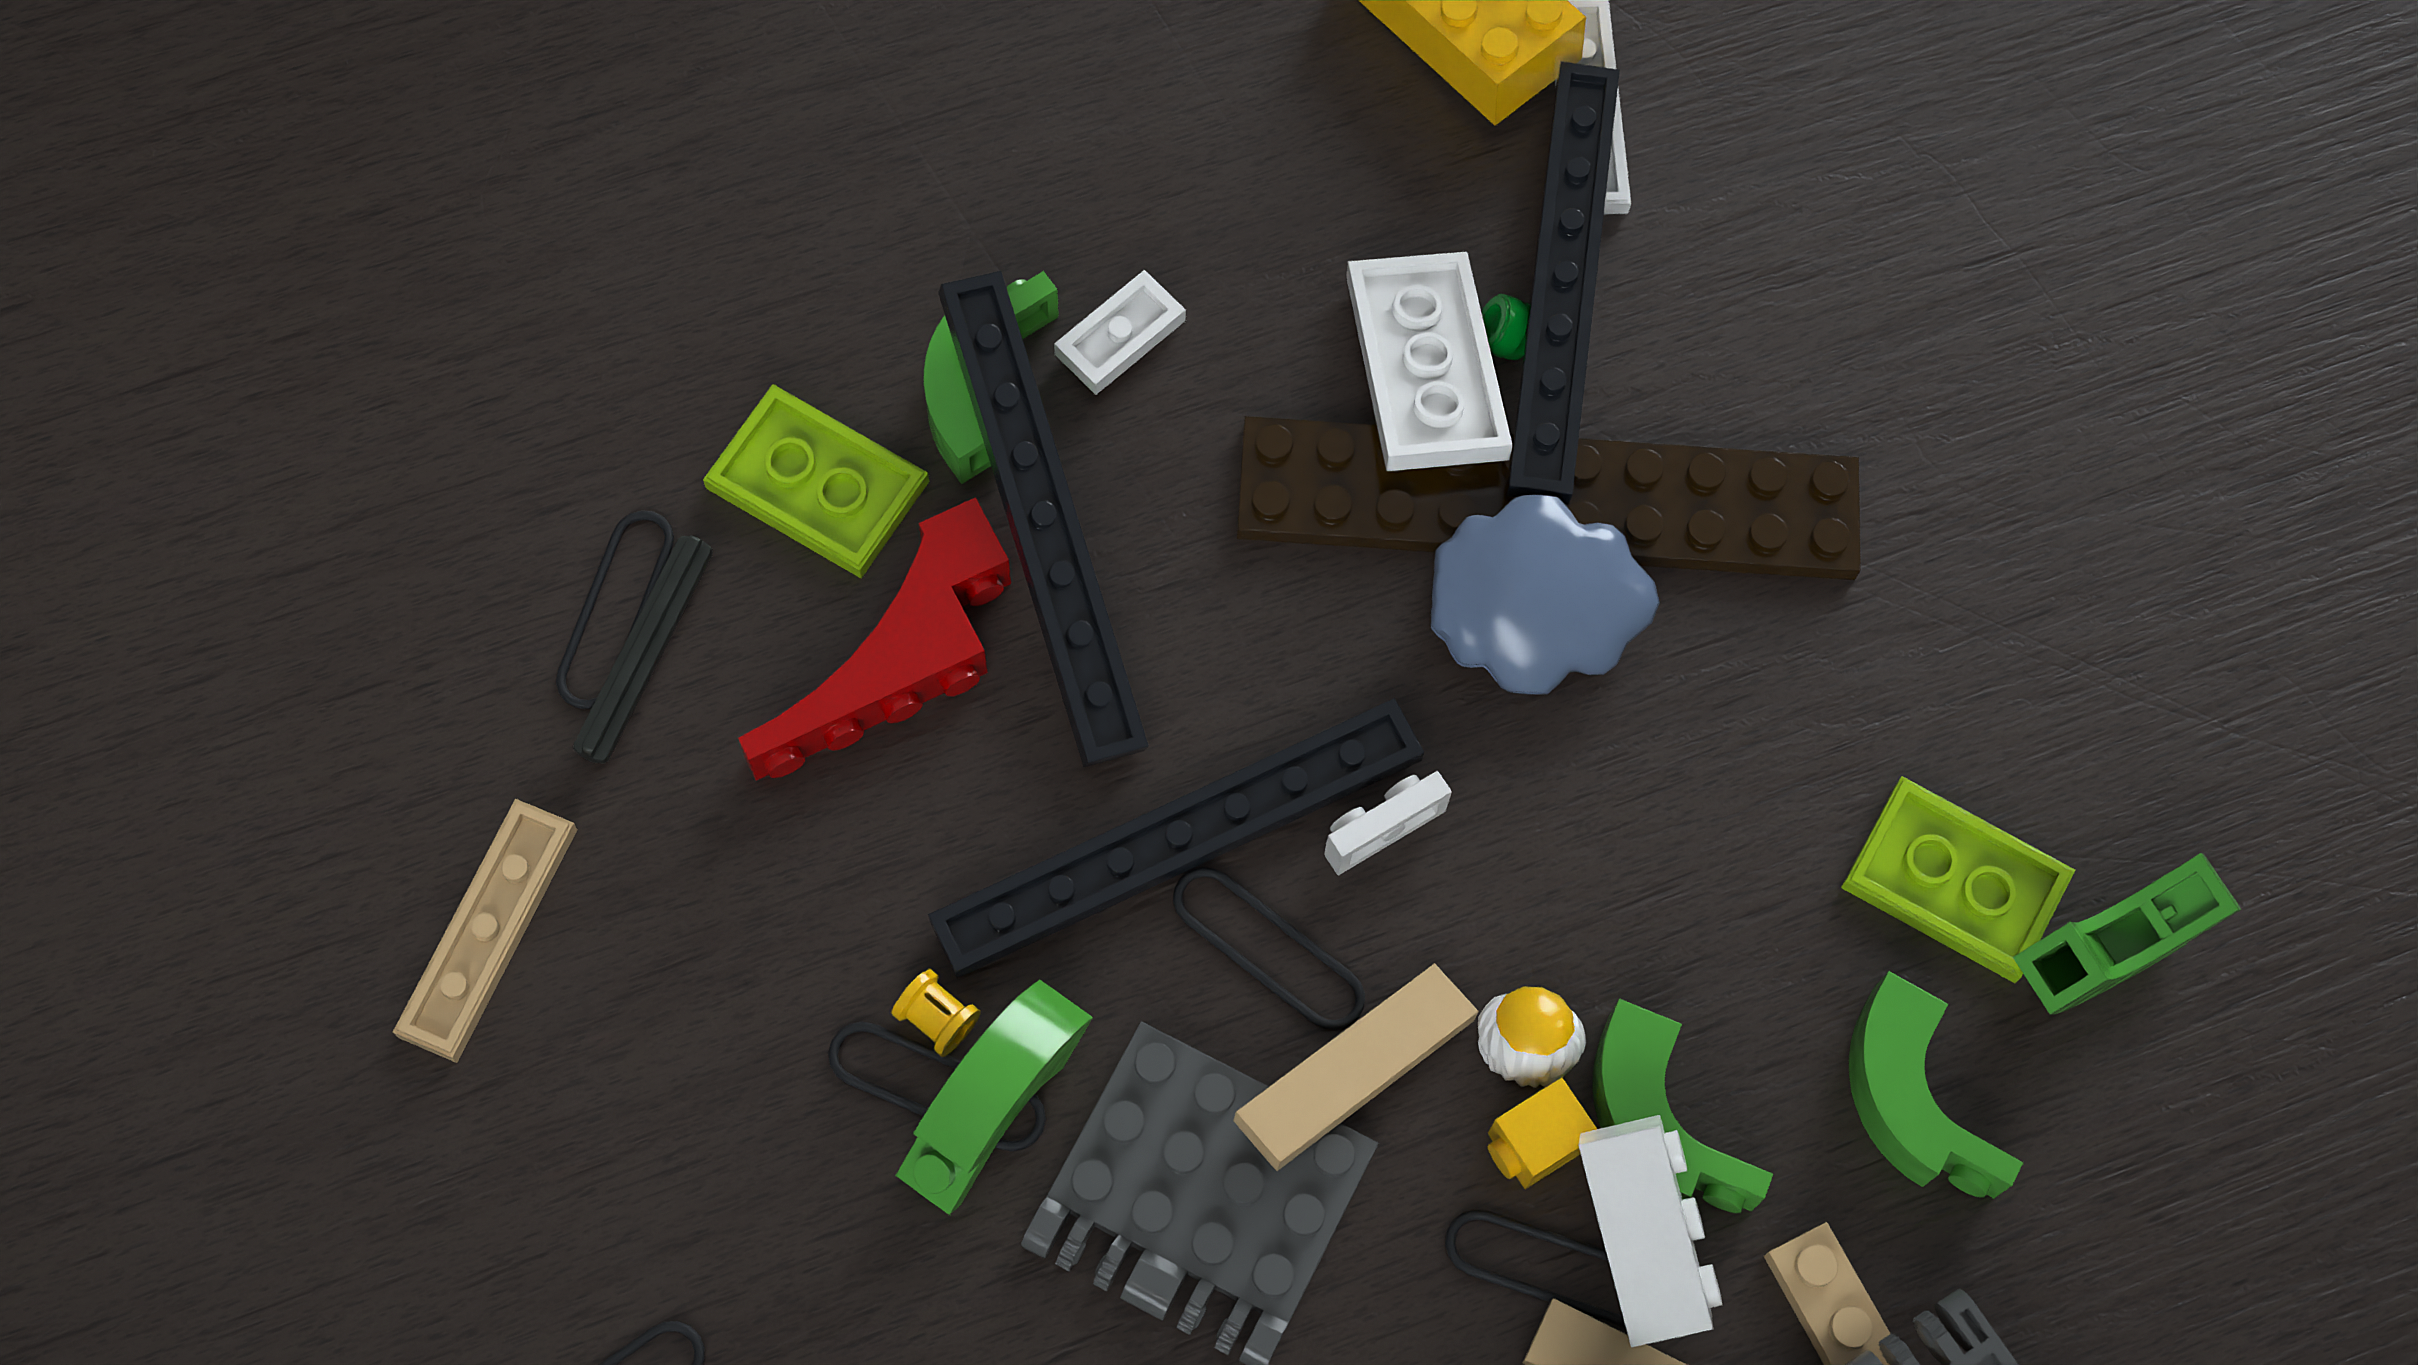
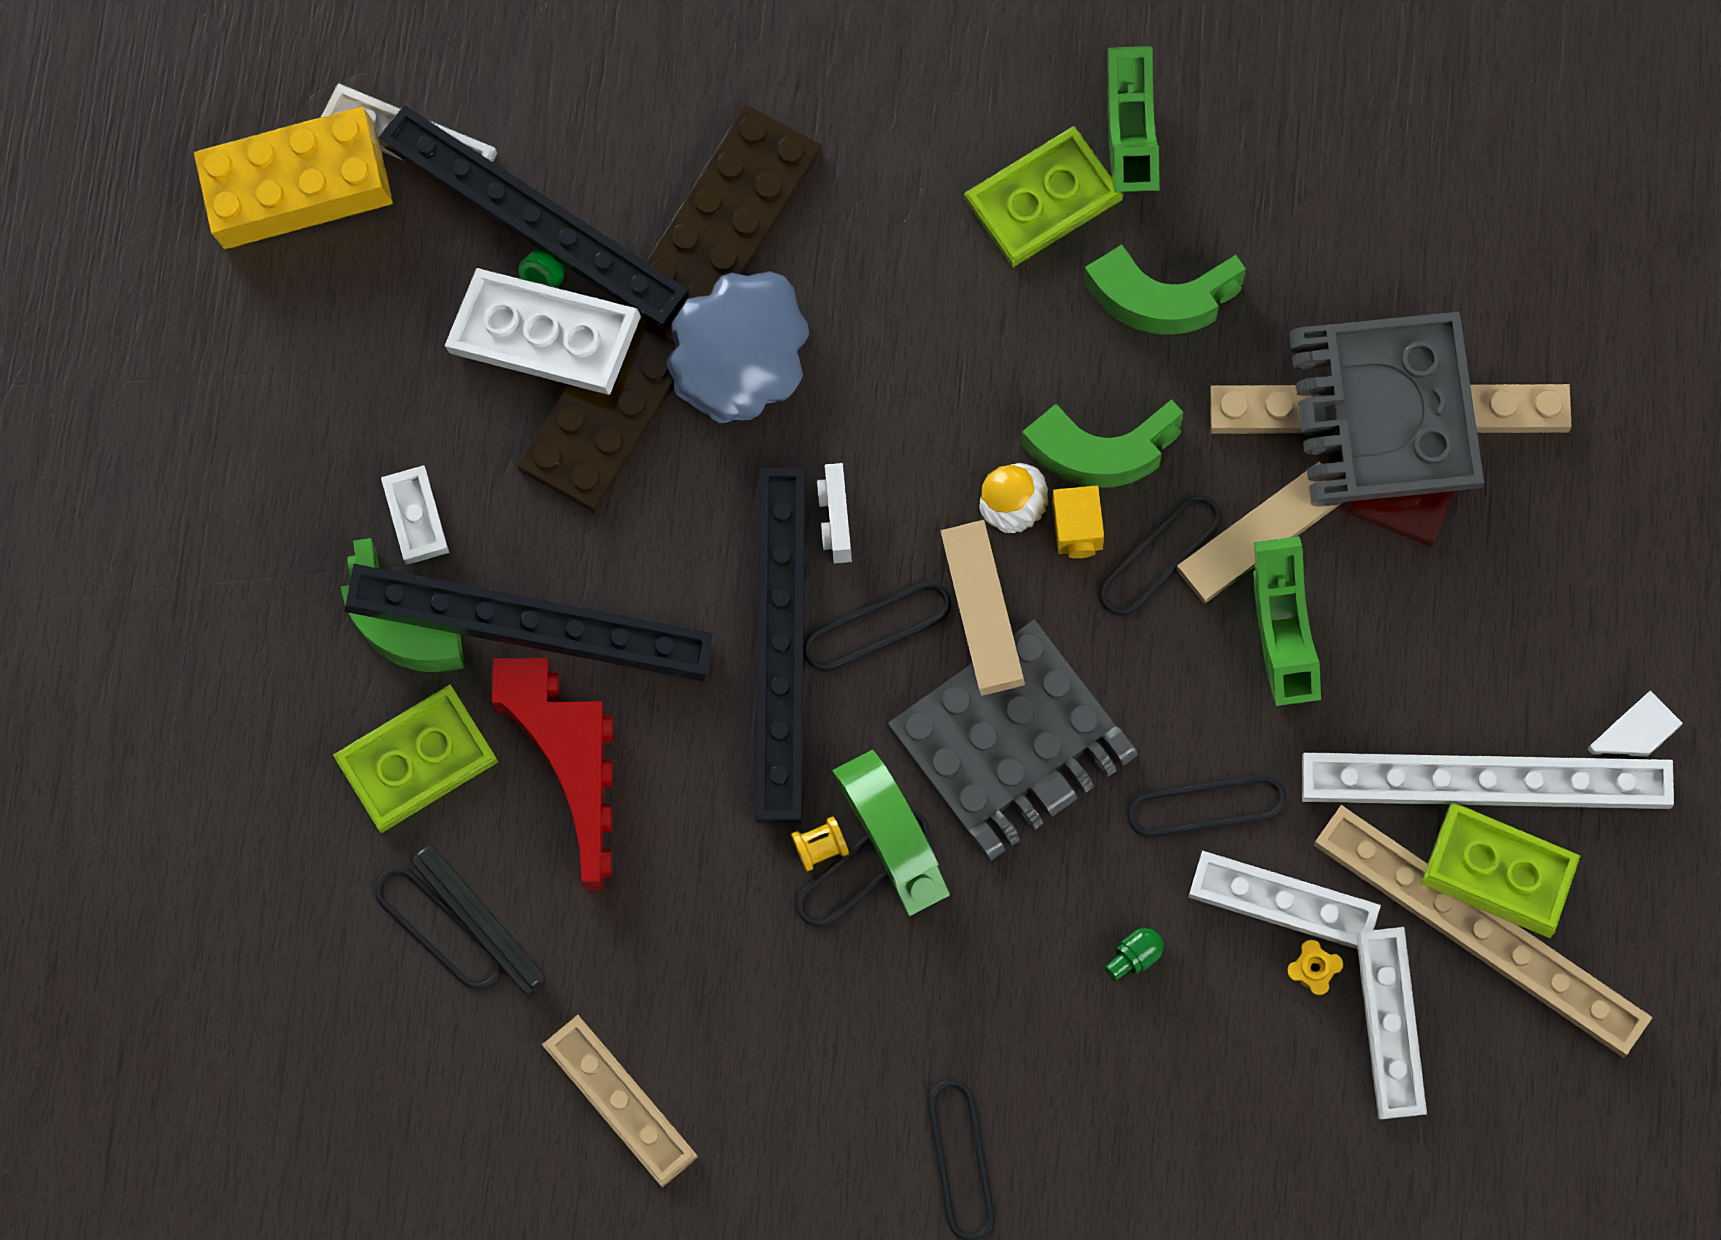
camera: 55 degrees left, 5 degrees up
(1649, 1230) = (1169, 486): white brick -> none

